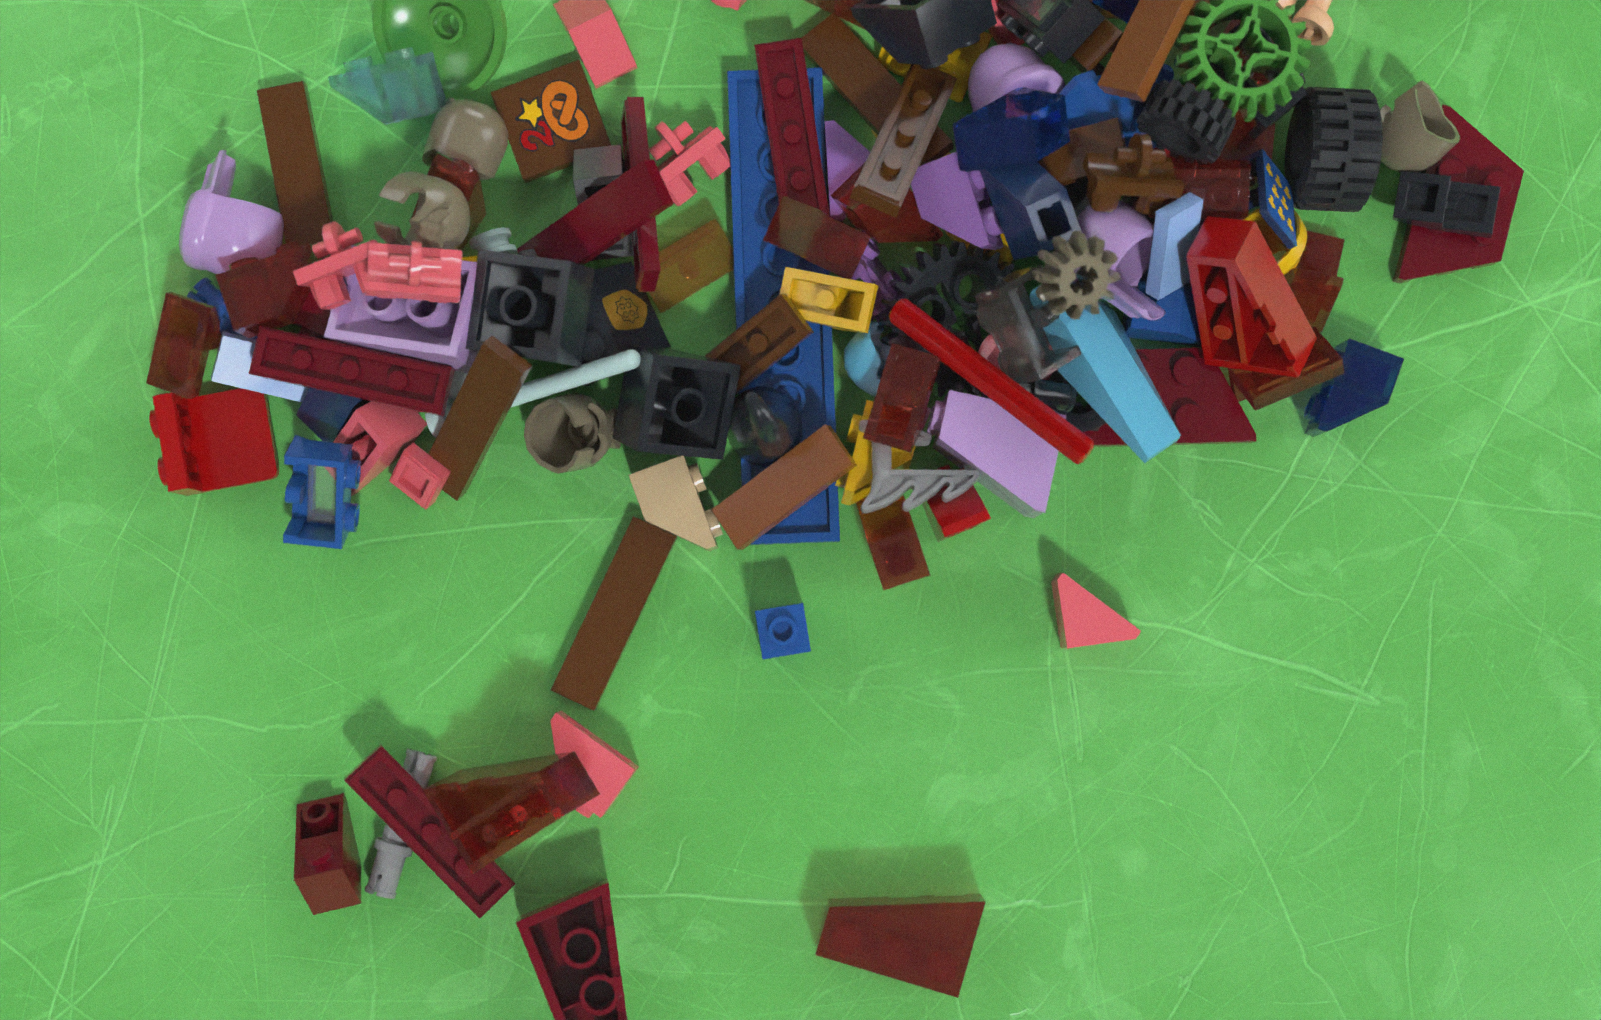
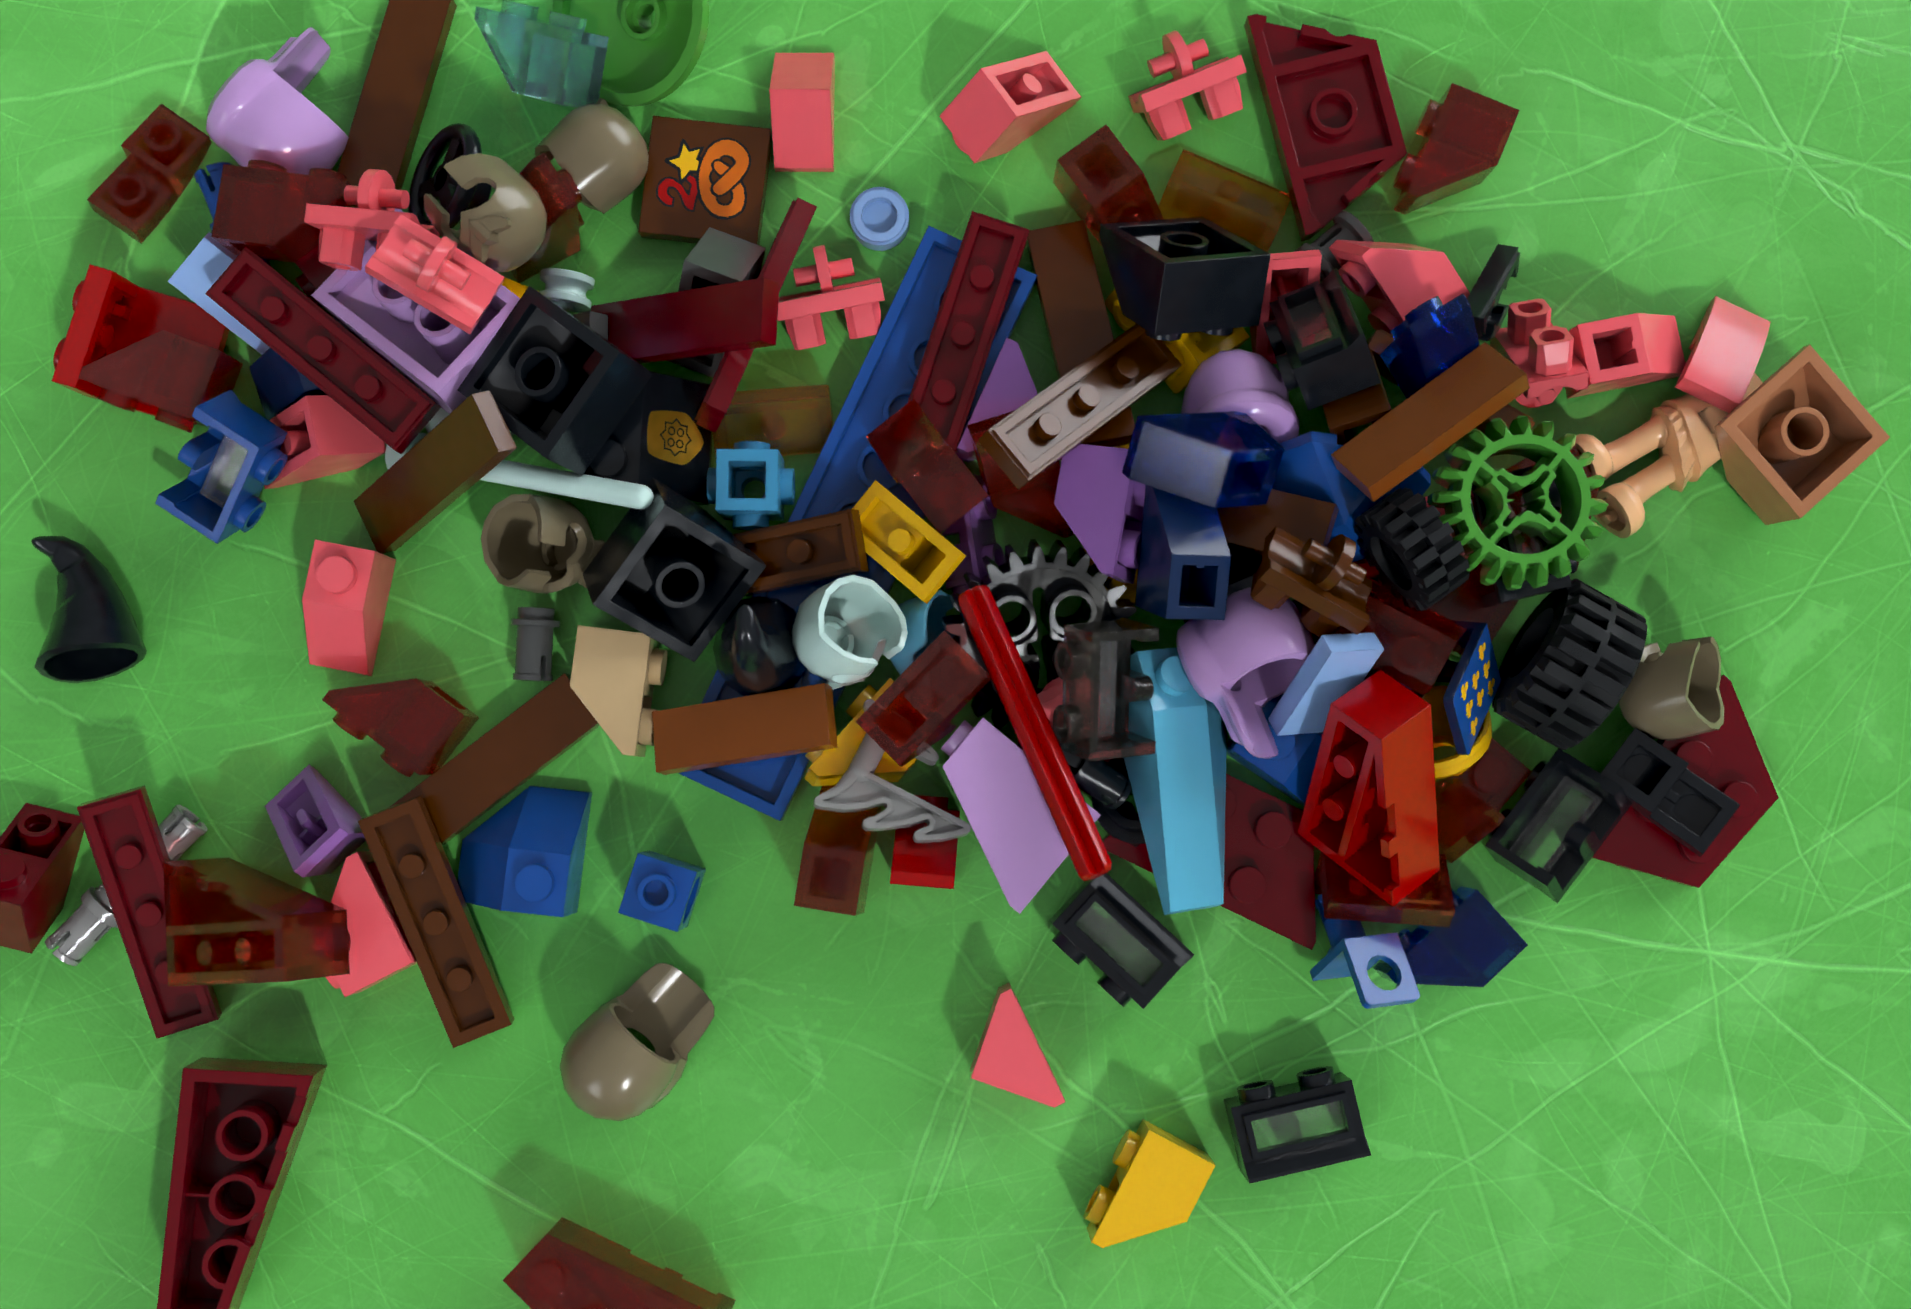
camera: 25 degrees right, 0 degrees up
(145, 303) = (153, 176): none -> clear red slope
(182, 345) = (159, 225): clear red slope -> none
(244, 448) = (165, 375): none -> clear red slope
(281, 652) = (92, 624): none -> black hat
(371, 206) = (458, 141): none -> black piece
(419, 476) = (349, 505): coral tile -> none
(454, 548) = (345, 605): none -> coral slope
(511, 710) = (314, 824): none -> medium lavender slope
(538, 603) = (408, 718): none -> clear red slope
(601, 506) = (534, 643): none -> dark grey pin
(635, 734) = (436, 921): none -> reddish brown plate
(672, 656) = (528, 854): none -> blue slope
(688, 84) = (879, 218): none -> light blue tile
(694, 299) = (737, 468): none -> dark azure brick
(819, 379) = (847, 629): none -> light aqua helmet
(820, 747) = (615, 1073): none -> dark tan piece
(1092, 277) = (1211, 671): dark tan gear -> none
(1119, 502) = (1120, 939): none -> black window
(1230, 662) = (1151, 1189): none -> yellow slope
(1288, 426) = (1355, 953): none -> blue bracket
(1307, 567) = (1295, 1124): none -> black window
(1381, 265) = (1557, 823): none -> black window

